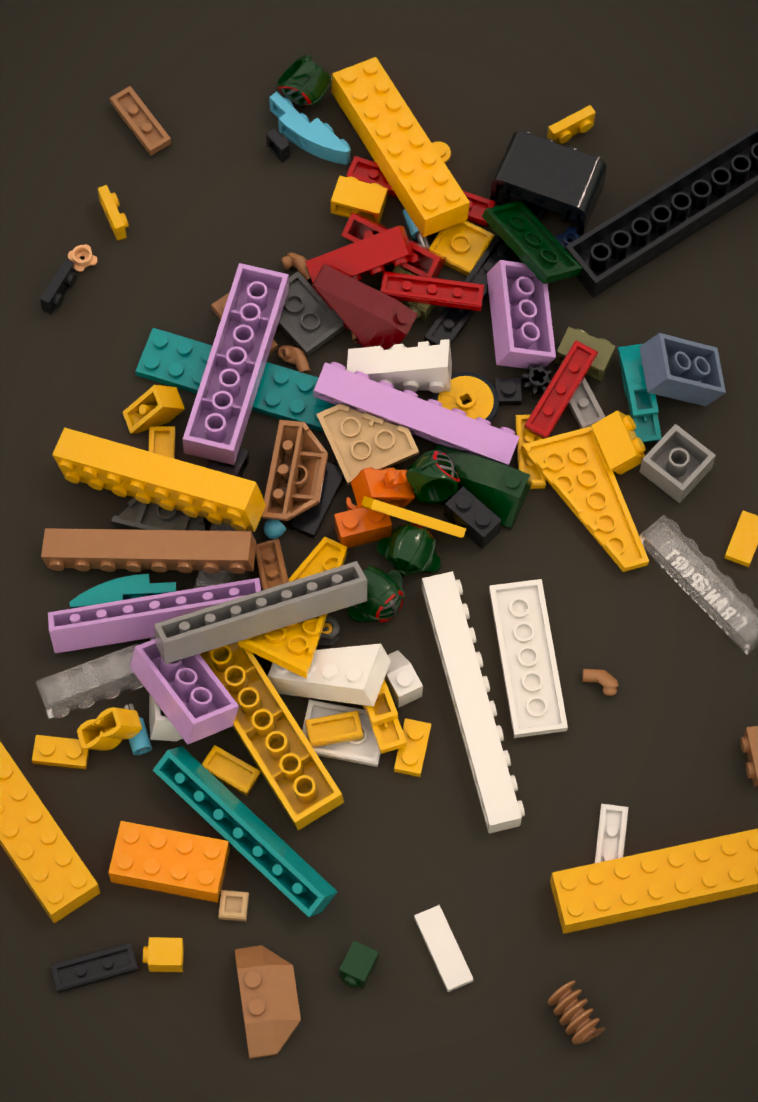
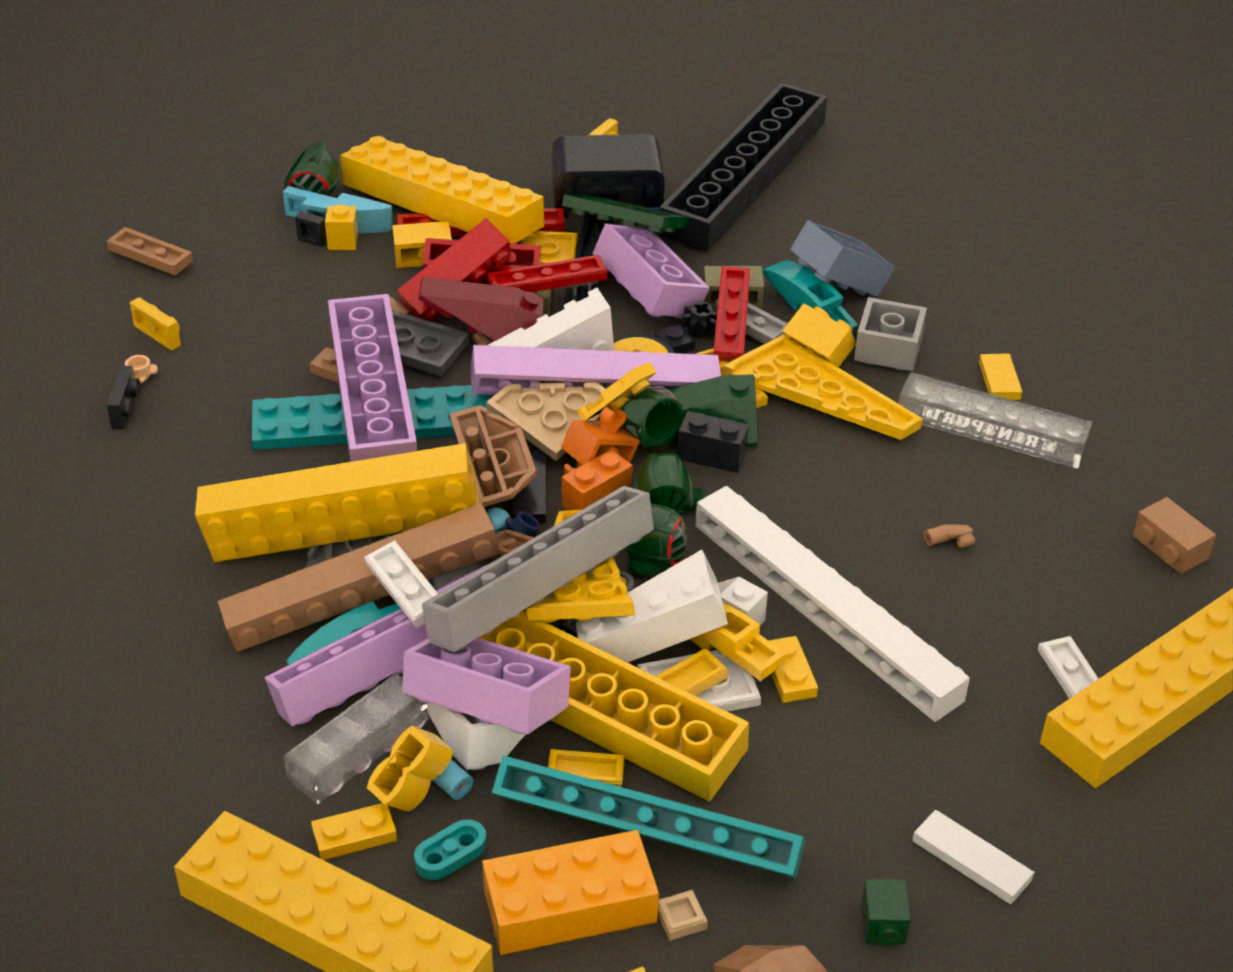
camera: 25 degrees left, 25 degrees down
(112, 793) = (448, 849): none -> teal plate
(153, 408) = (294, 453): yellow slope -> none
(167, 580) = (401, 580): none -> white tile
(291, 541) = (524, 524): none -> dark blue plate
(296, 357) = (427, 378): medium nougat arm -> none
(301, 155) = (341, 227): none -> yellow brick
(408, 458) = (618, 393): none -> yellow wing
(413, 517) = (641, 445): yellow tile -> none
(528, 658) = (861, 543): white plate -> none
(574, 1014) = (1182, 856): medium nougat piece -> none

